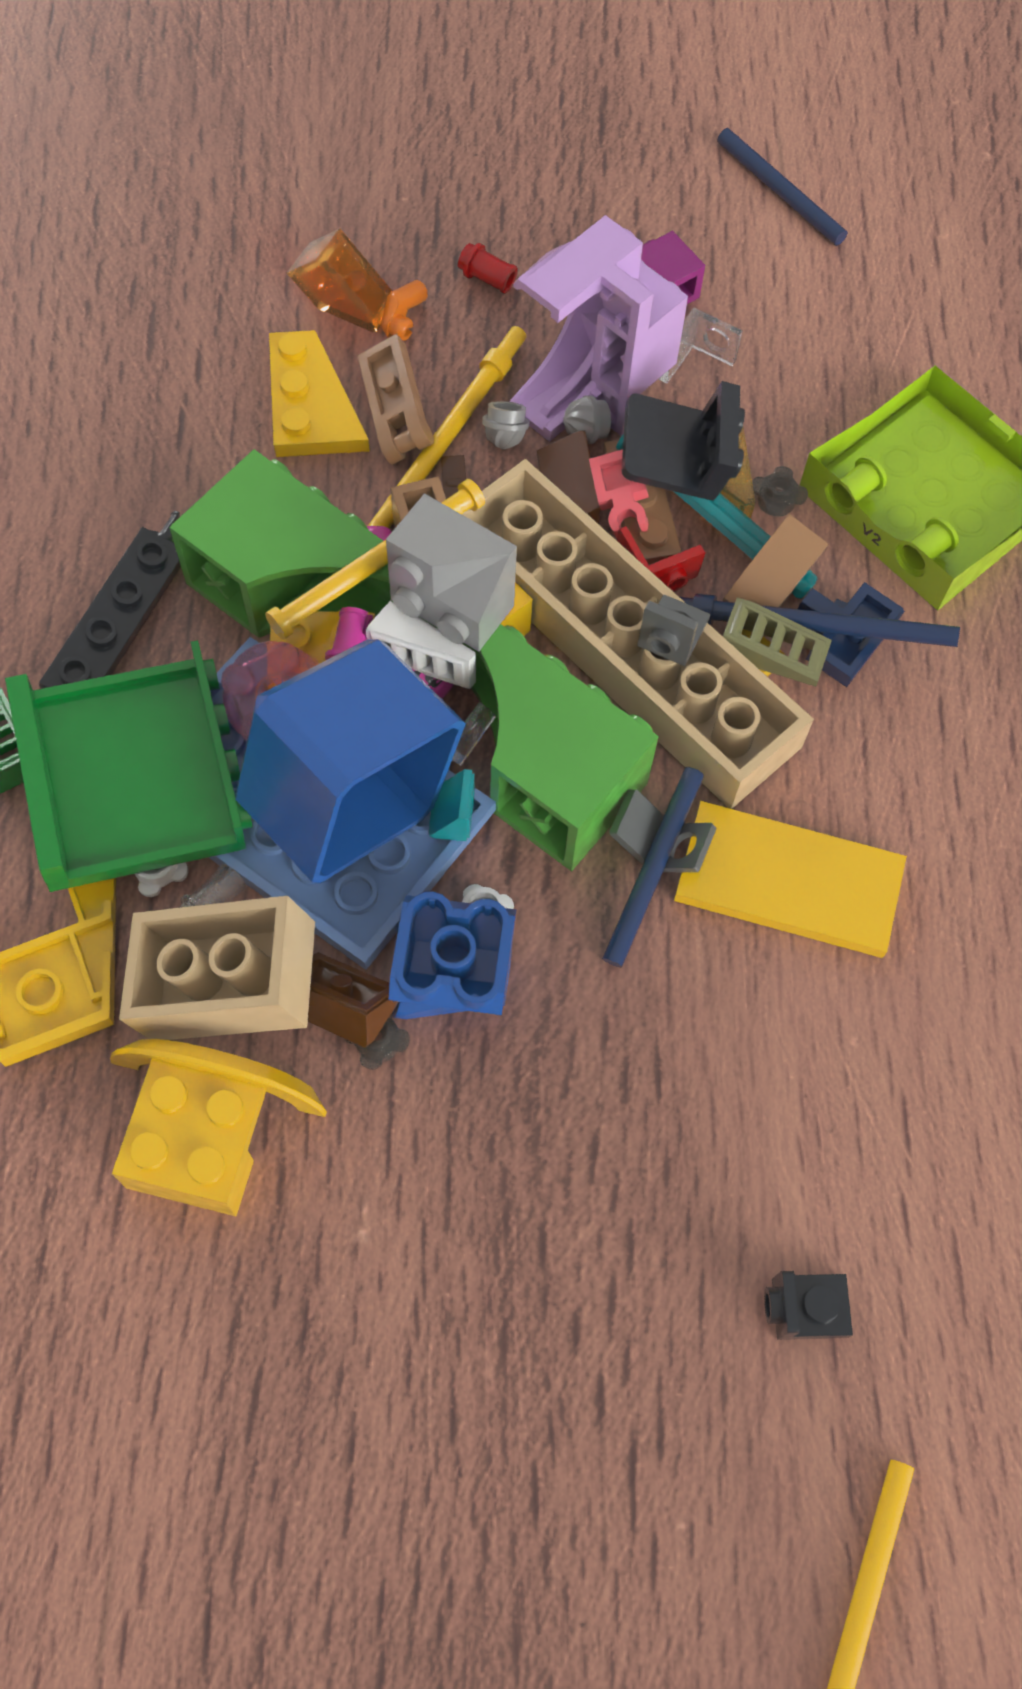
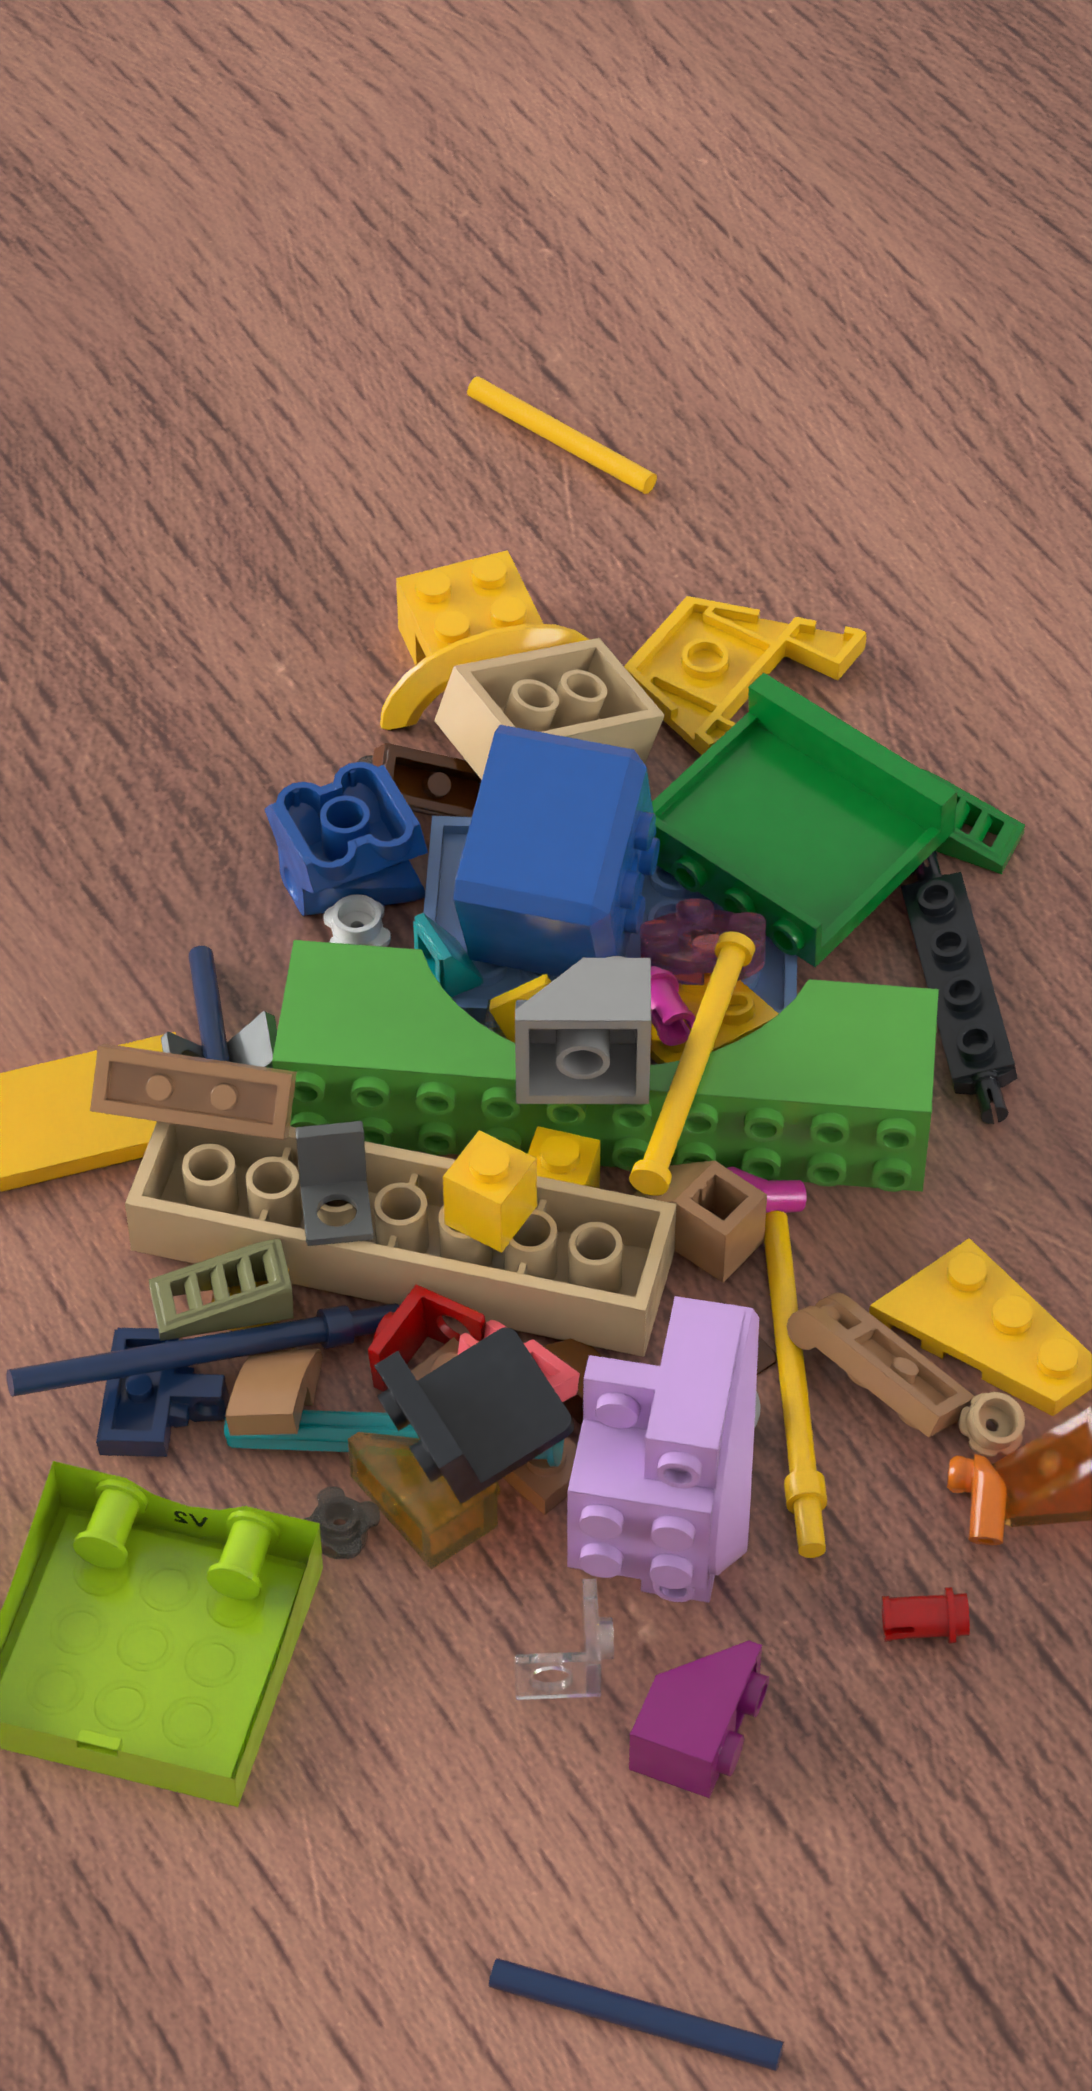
camera: 150 degrees right, 15 degrees down
(359, 335) = (1006, 1416): none -> tan plate
(577, 553) = (490, 1191): none -> yellow brick
(726, 751) = (193, 1091): none -> medium nougat plate

